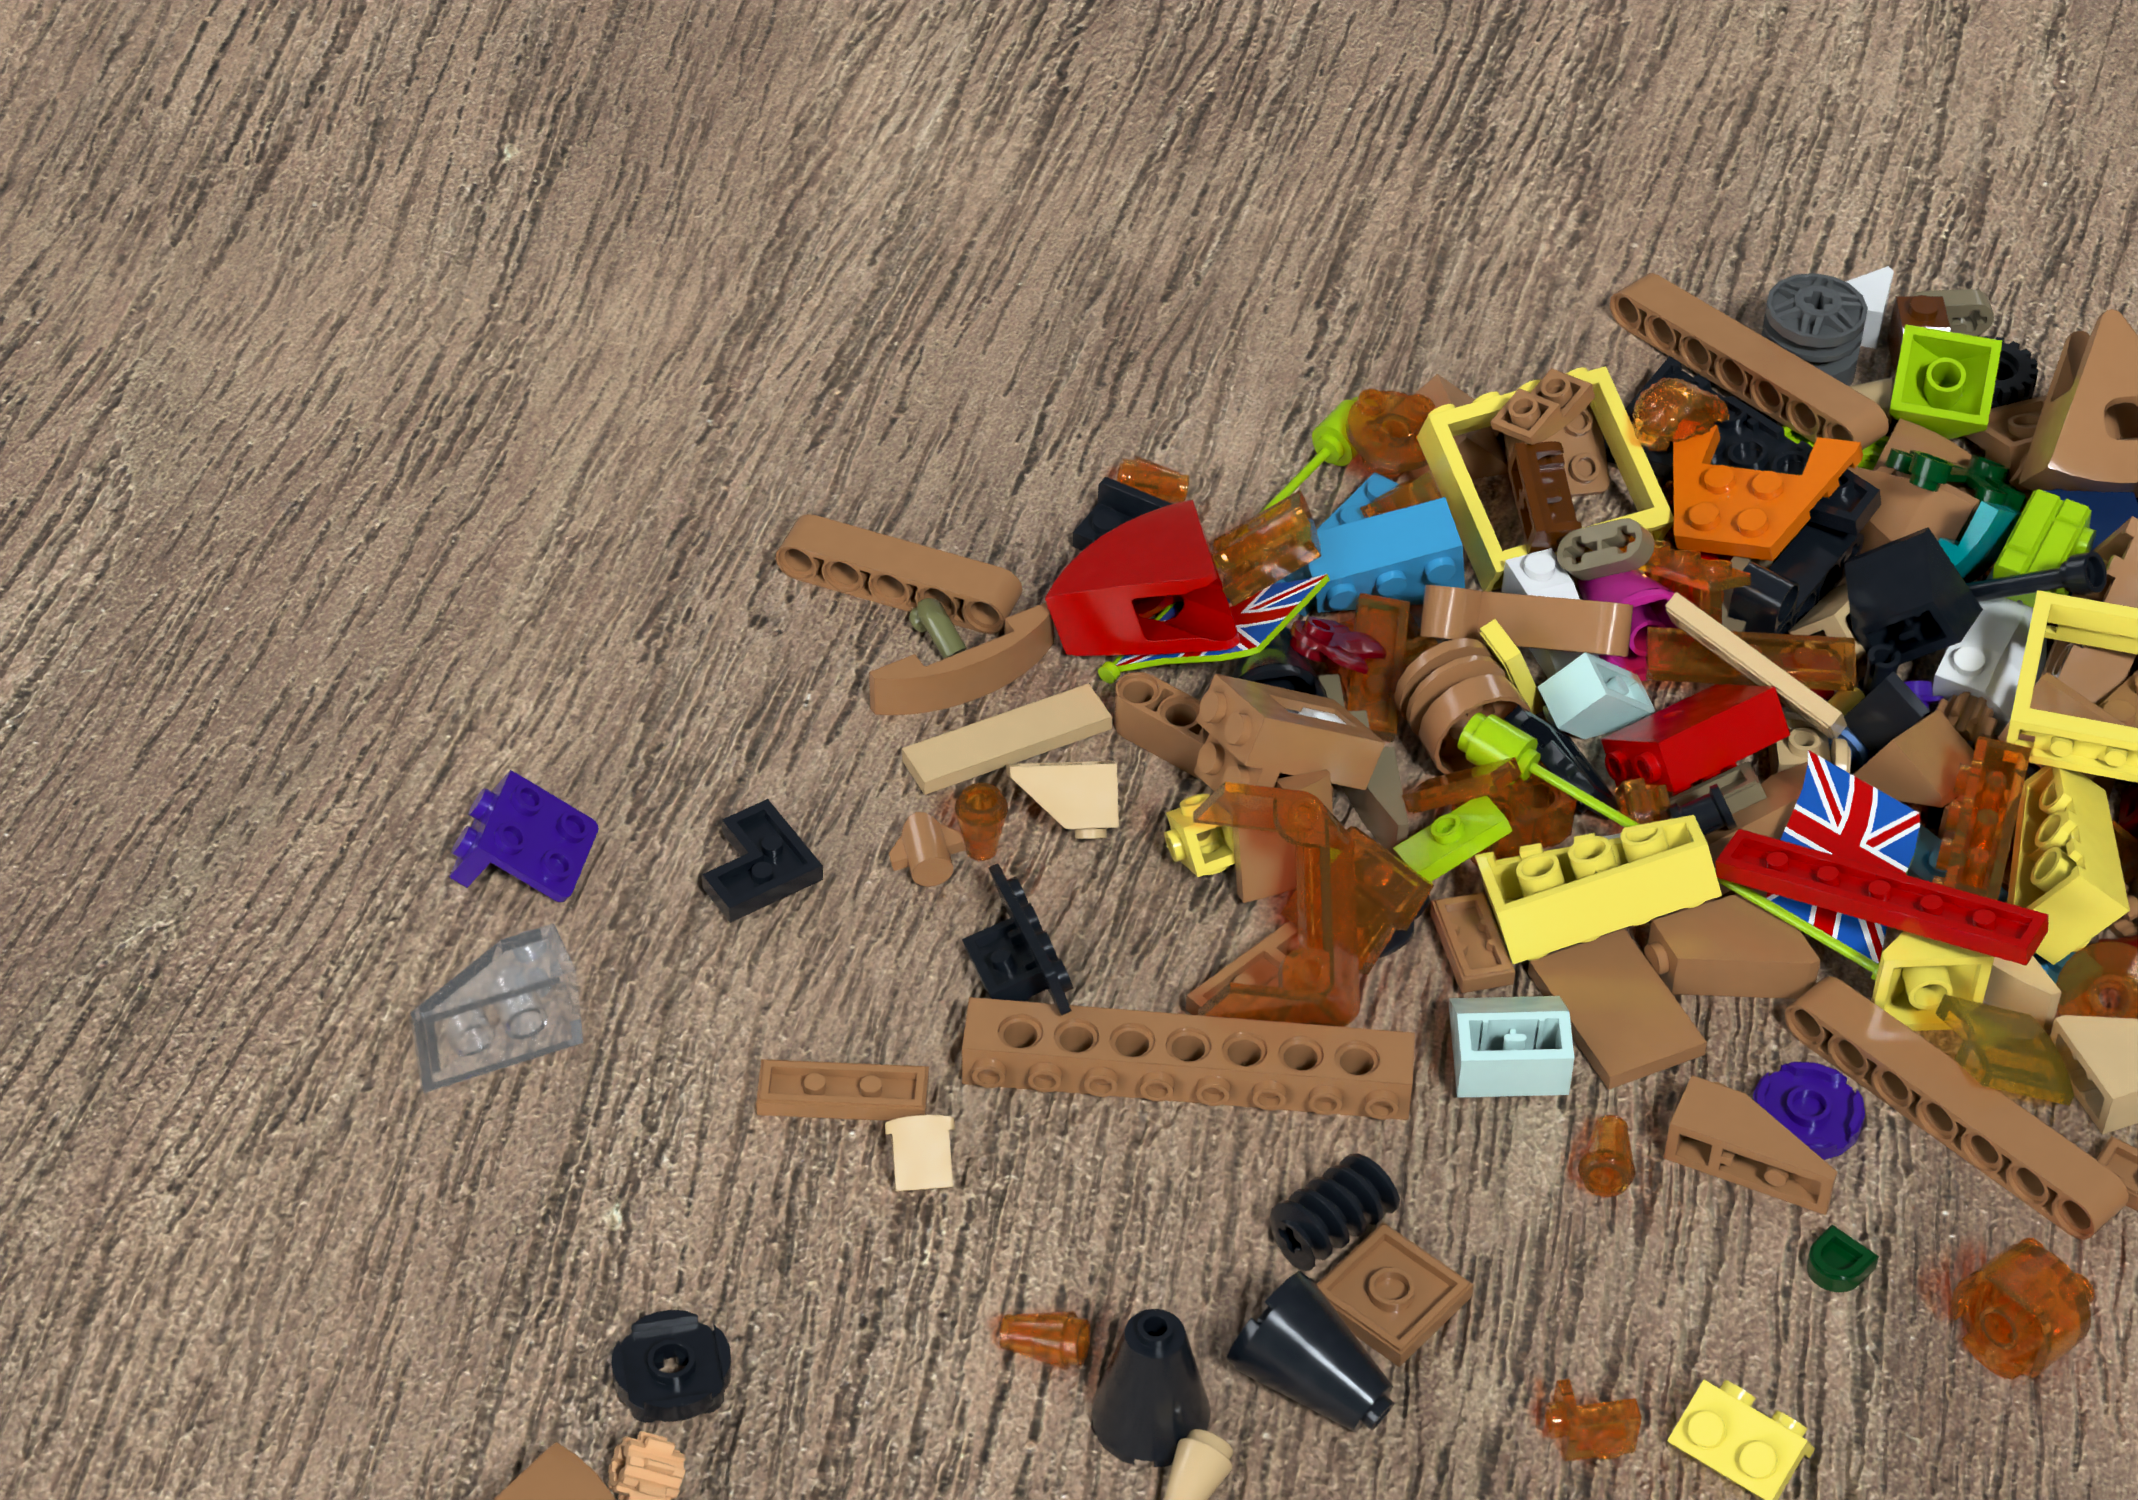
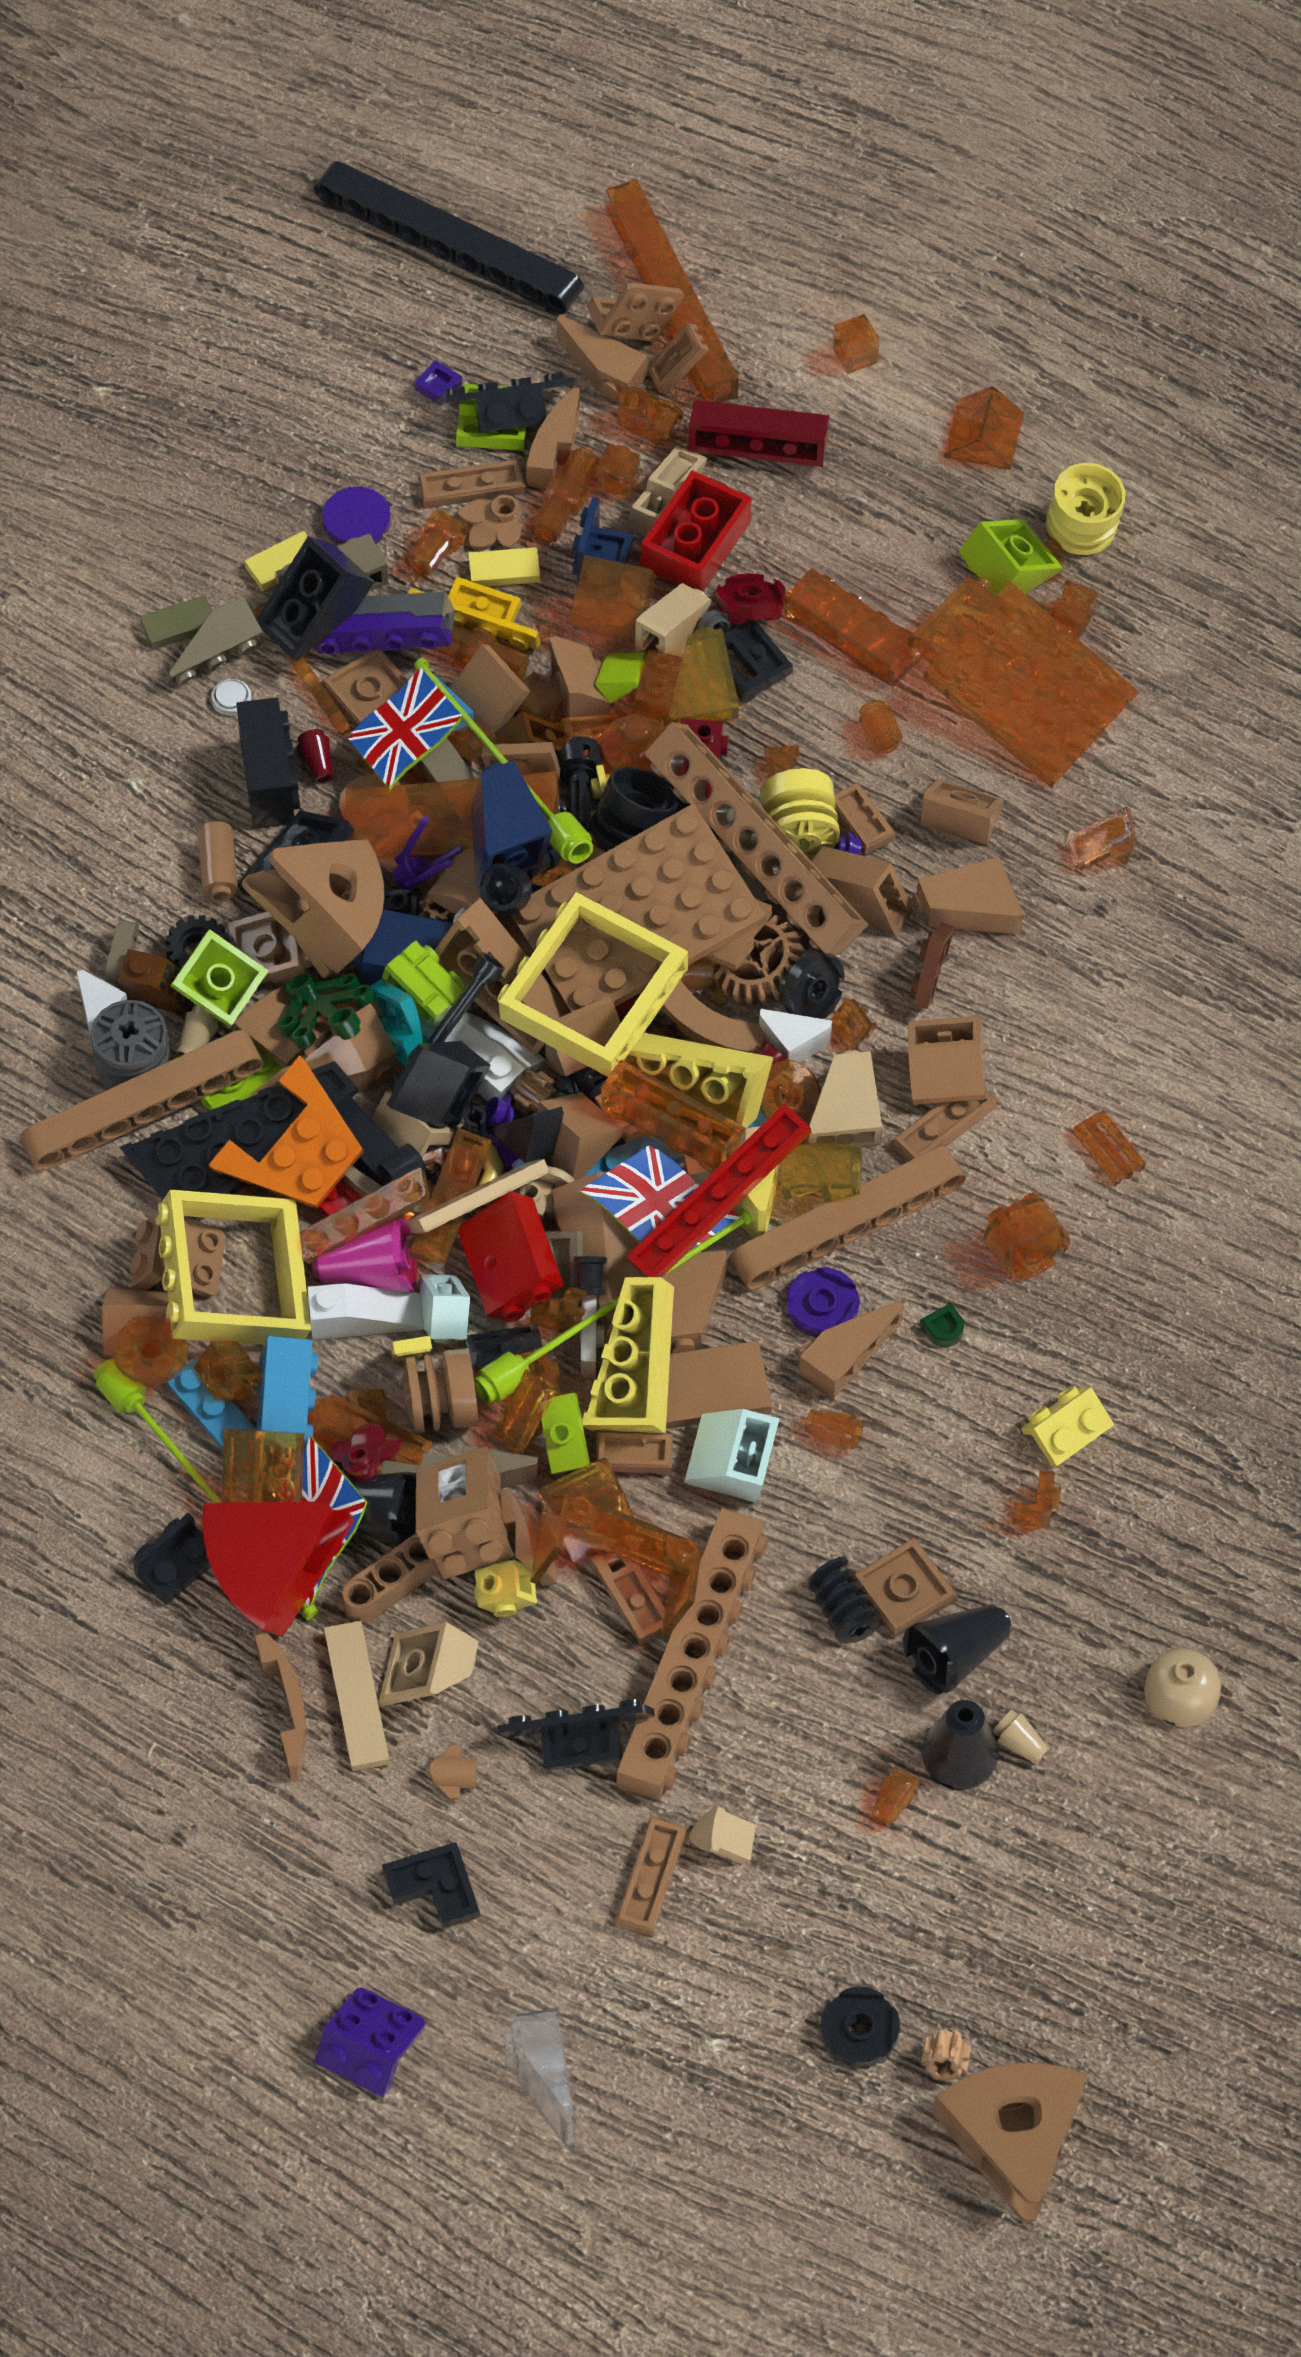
camera: 75 degrees left, 15 degrees up
(898, 572) = (173, 1728): medium nougat beam -> none
(932, 617) = (223, 1715): olive arm -> none
(981, 818) = (449, 1724): clear orange cone -> none
(1153, 479) = (128, 1534): clear orange cone -> none
(1528, 620) = (379, 1322): medium nougat beam -> none
(1542, 494) = (273, 1276): reddish brown hinge -> none
(1544, 410) = (210, 1243): medium nougat slope -> none
(1605, 542) = (346, 1255): dark tan beam -> none
(1675, 413) = (229, 1162): clear orange hair -> none

